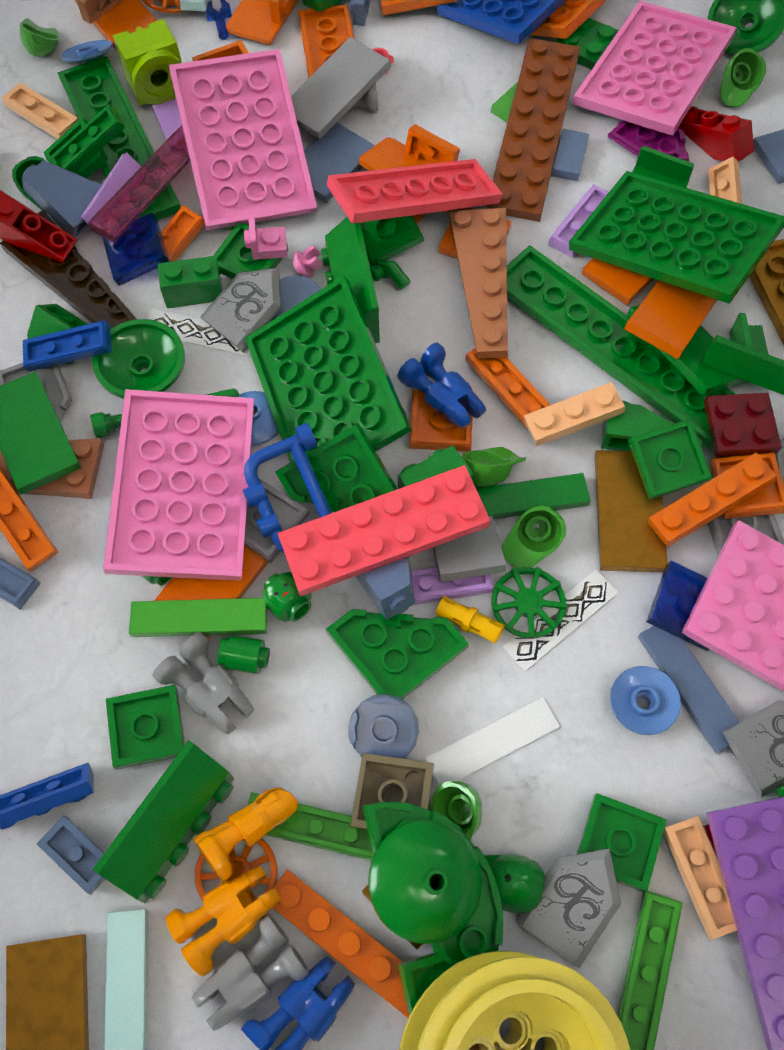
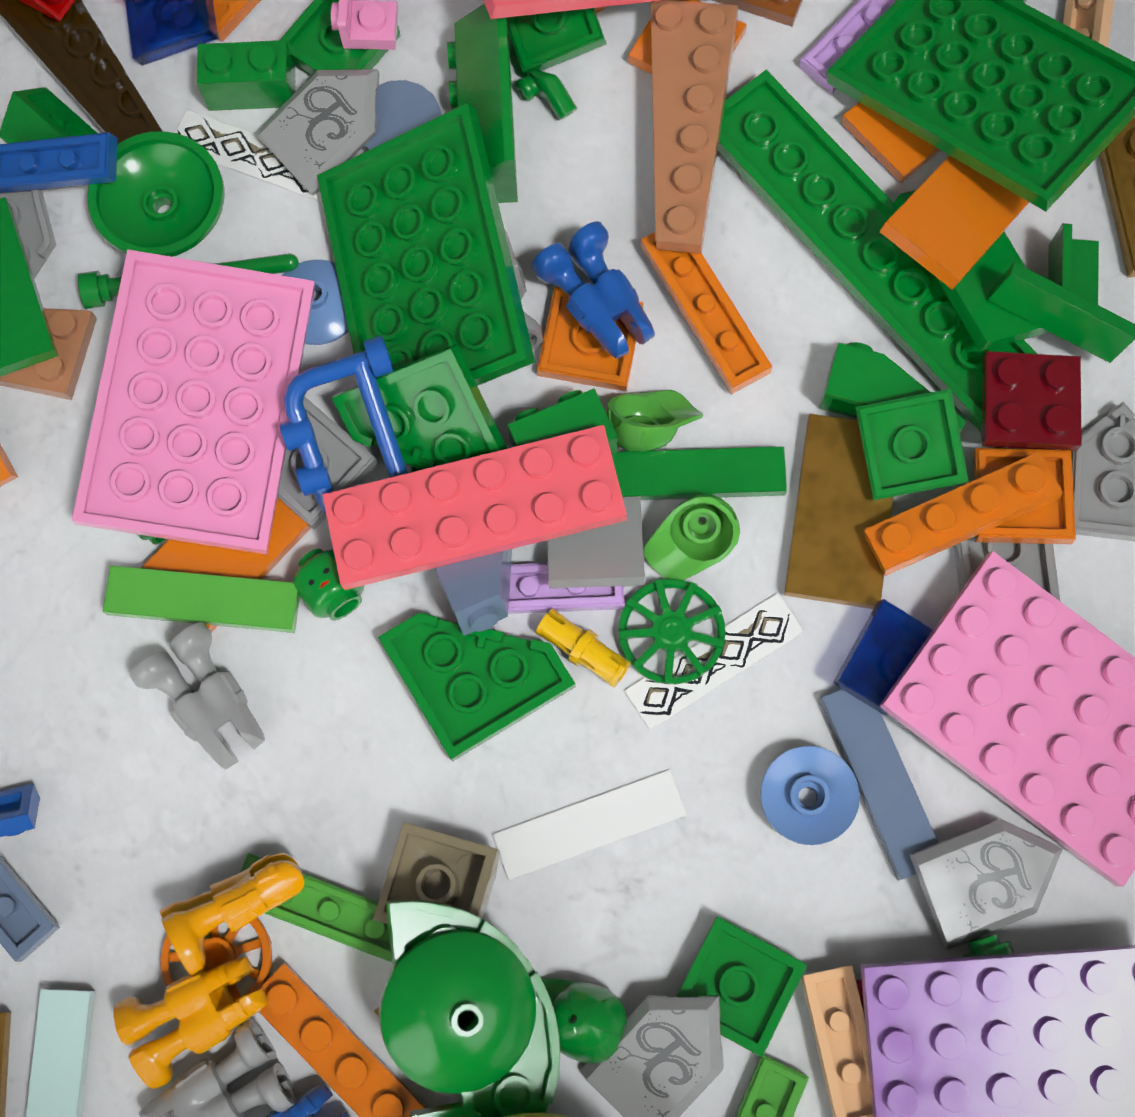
camera: 10 degrees right, 10 degrees up
(144, 727) = (114, 744): green plate -> none
(165, 824) = (126, 884): green slope -> none
(243, 654) = (258, 659): green brick -> none
(307, 262) = (422, 60): bright pink plate -> none
(384, 727) = (439, 788): sand blue tile -> none
(452, 802) = (523, 912): bright green cap -> none
(574, 414) = (783, 357): light nougat plate -> none

